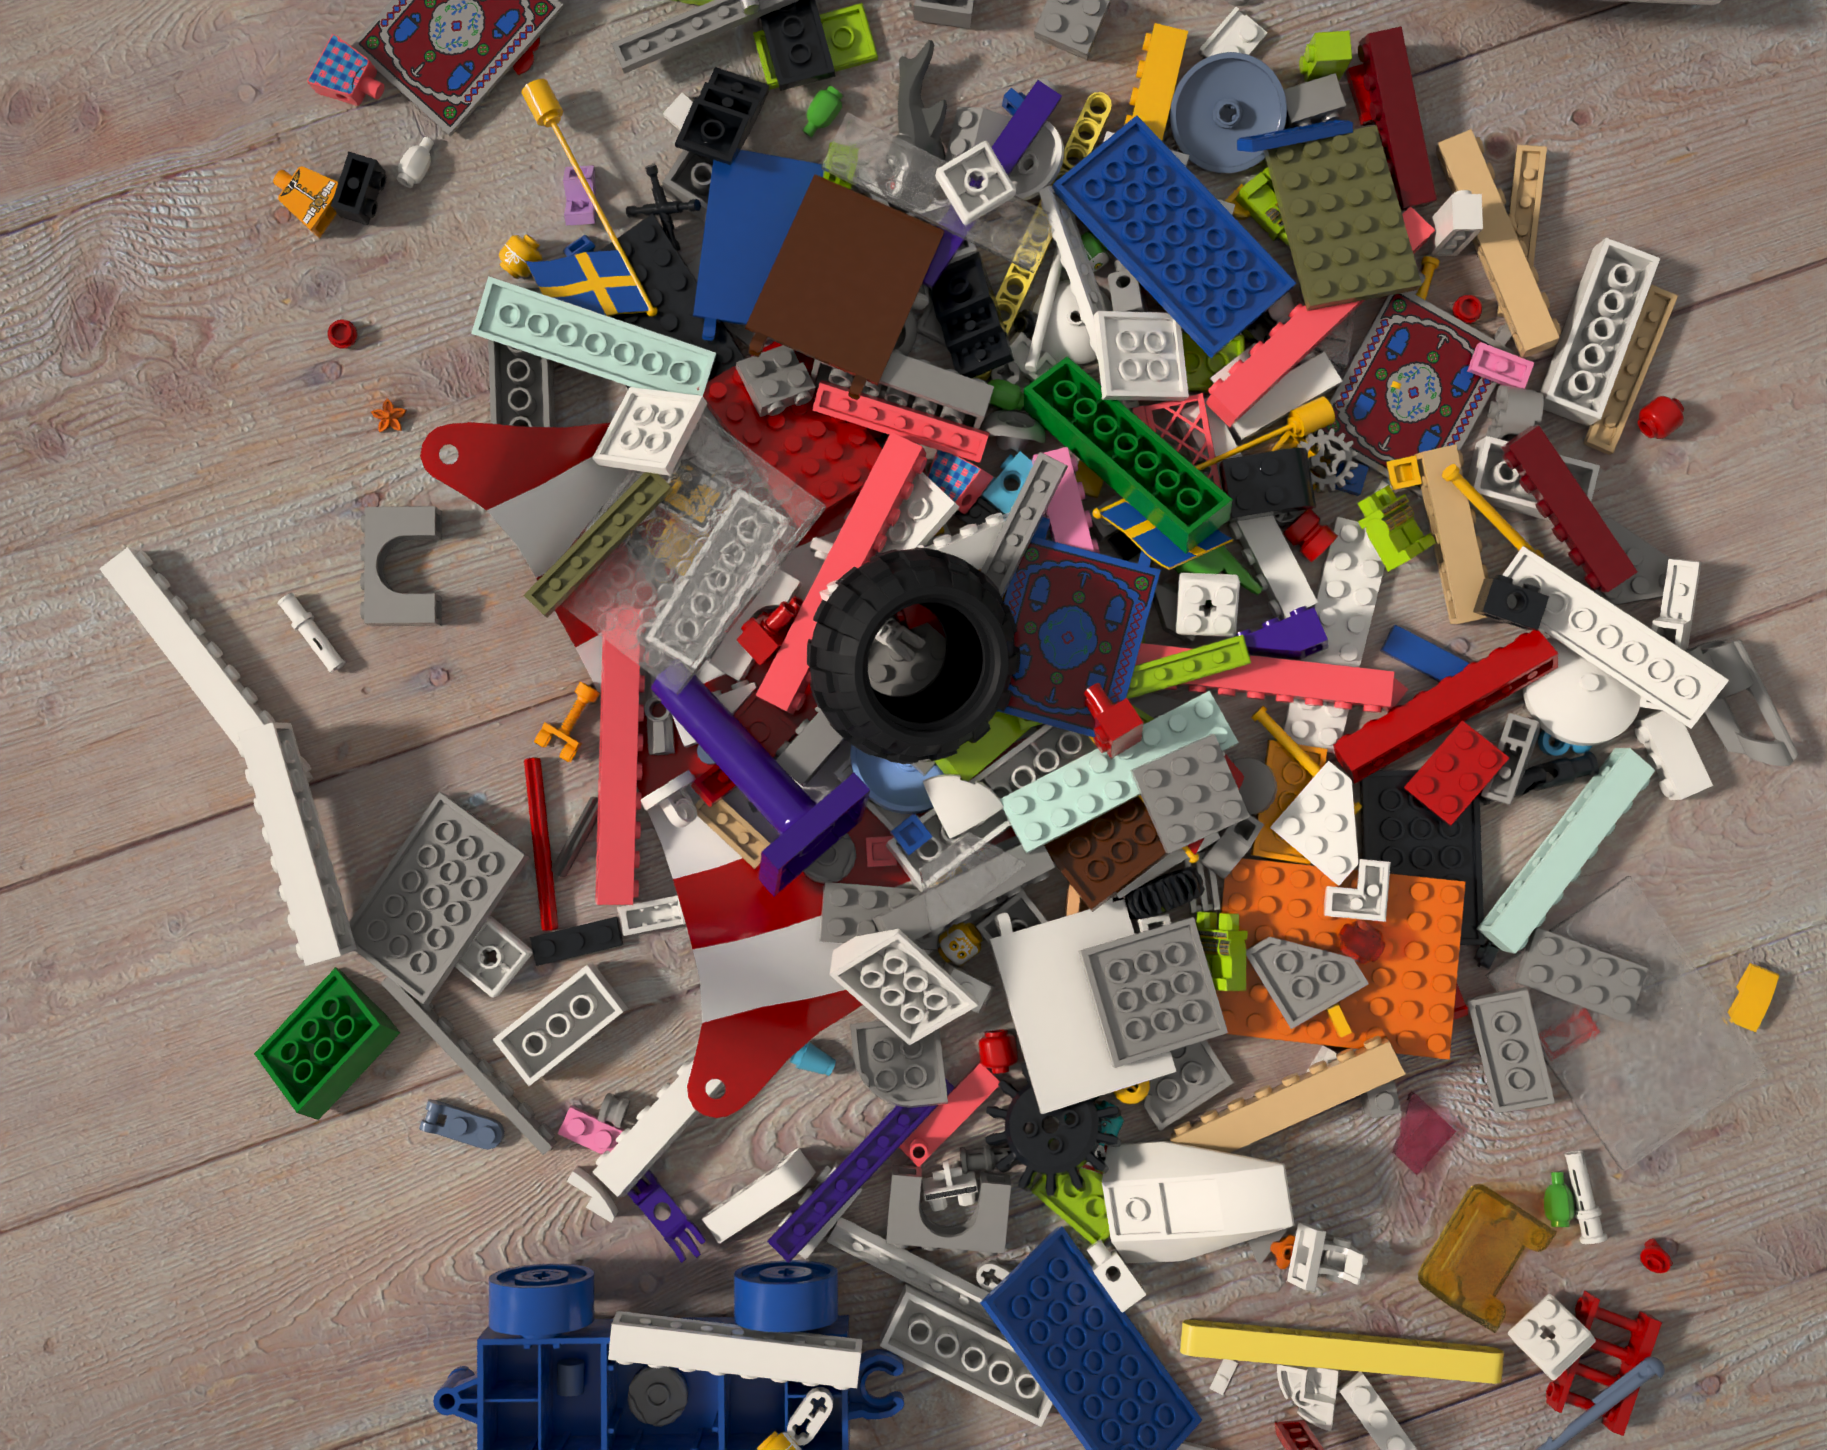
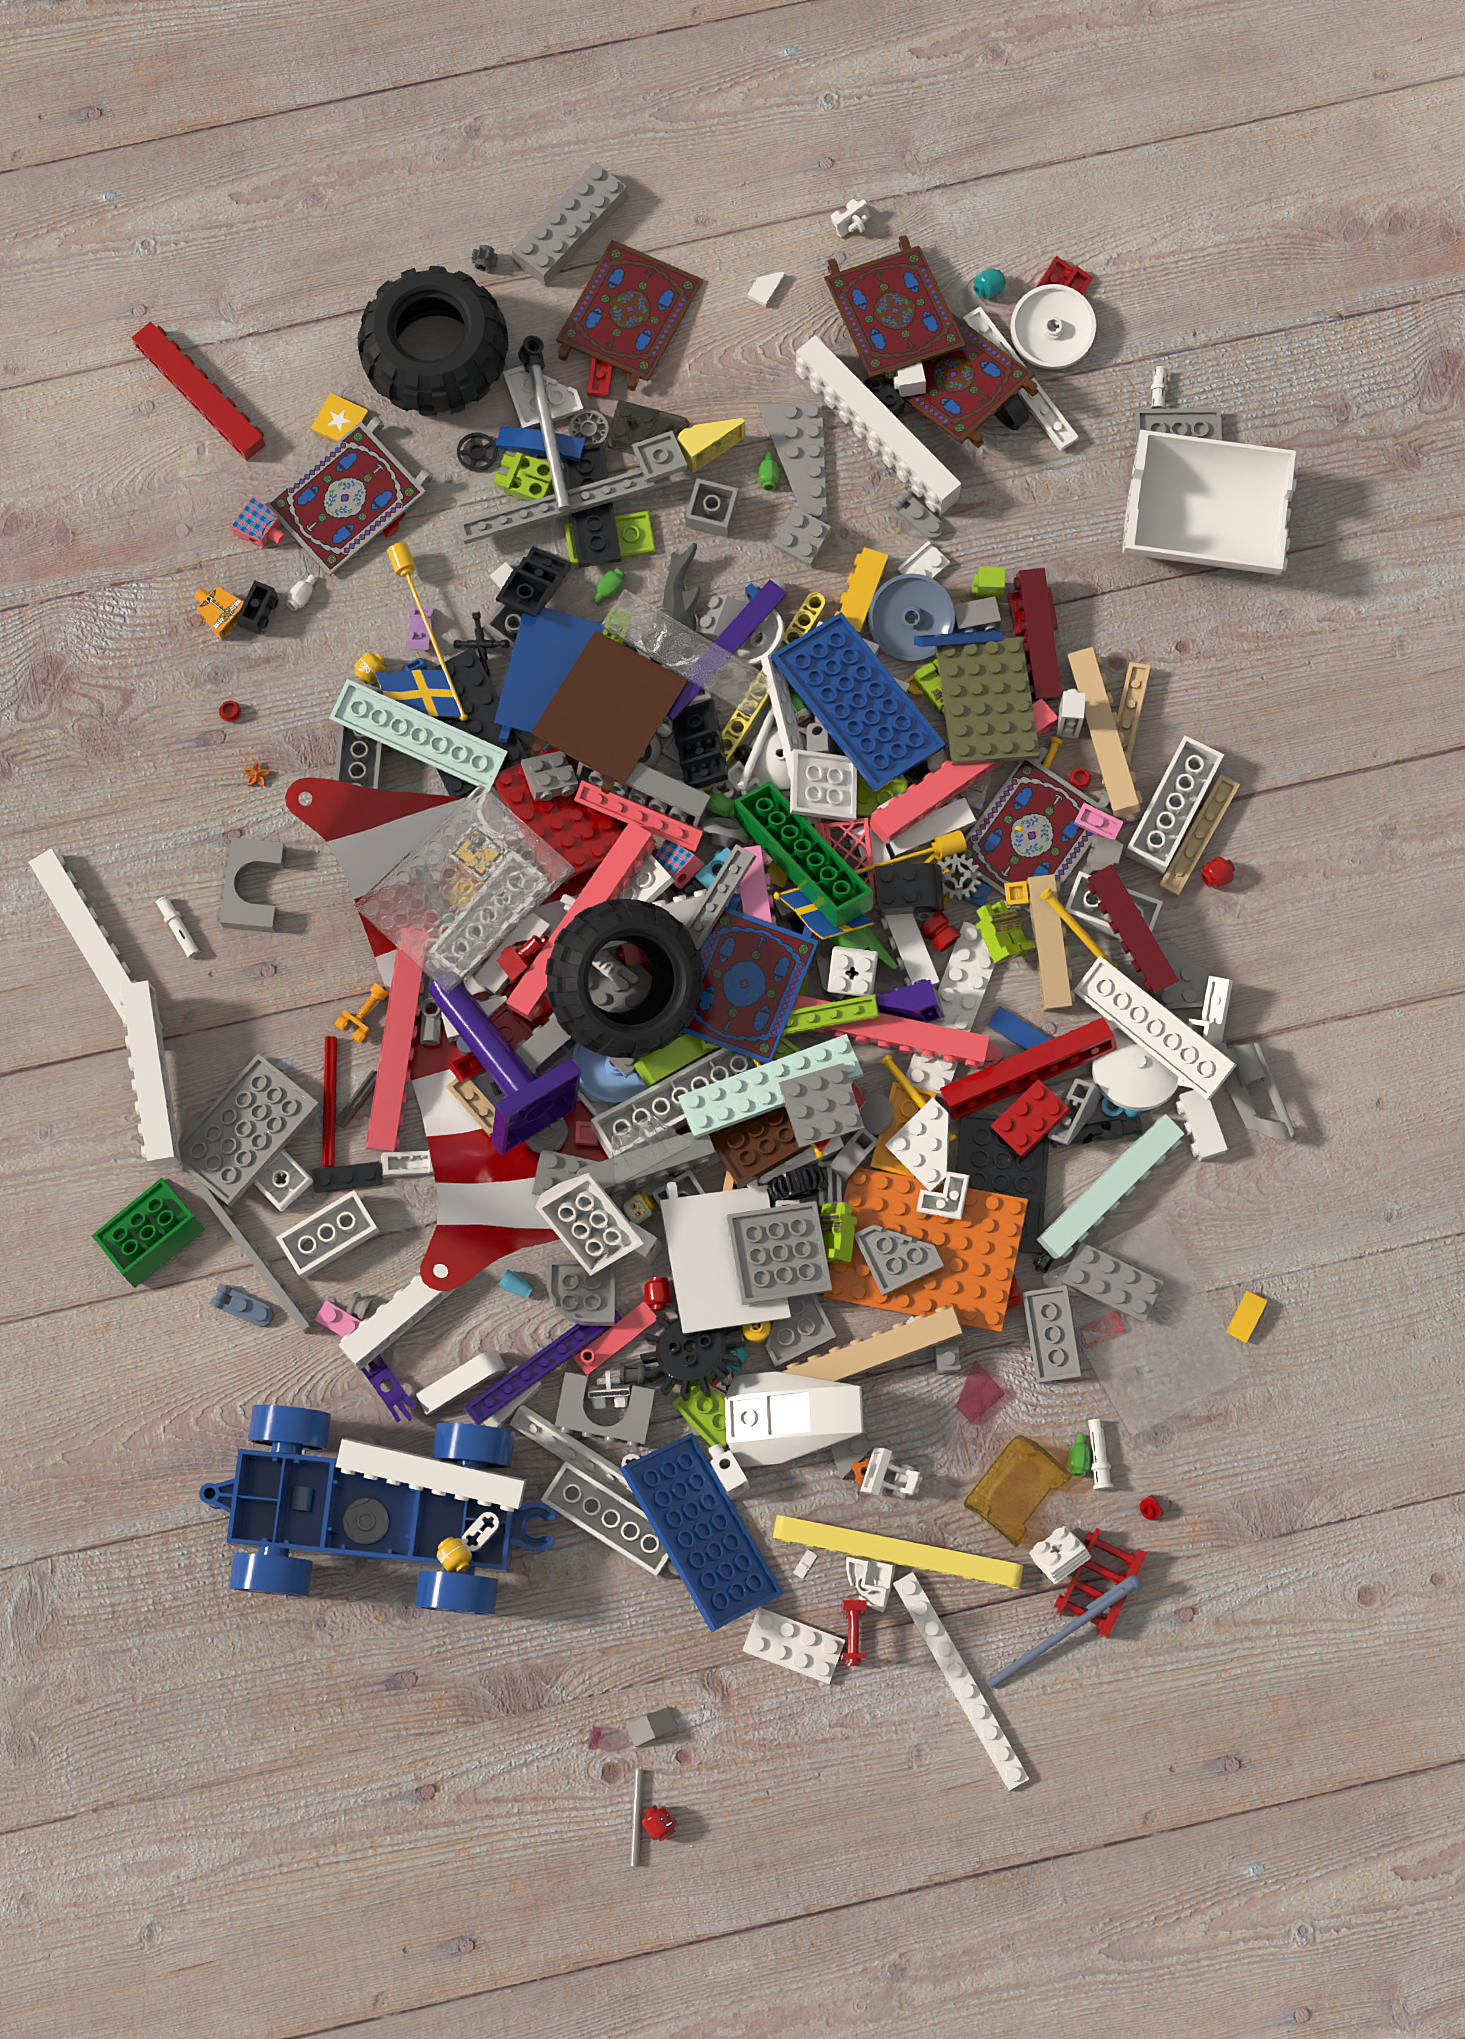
camera: 15 degrees right, 10 degrees down
(598, 542) = (403, 876): olive plate -> none
(601, 1202) = (338, 1371): white slope -> none
(650, 430) = (451, 801): white plate -> none
(672, 796) = (433, 1073): white tile -> none
(911, 834) = (609, 1114): blue plate -> none
(960, 803) = (649, 1095): white brick -> none
(981, 165) = (717, 635): white brick -> none
(1115, 724) = (769, 1045): red brick -> none
(1338, 1020) = (918, 1291): yellow tile -> none
(1361, 941) = (941, 1233): clear red head -> none
(1528, 608) = (1070, 995): black brick -> none

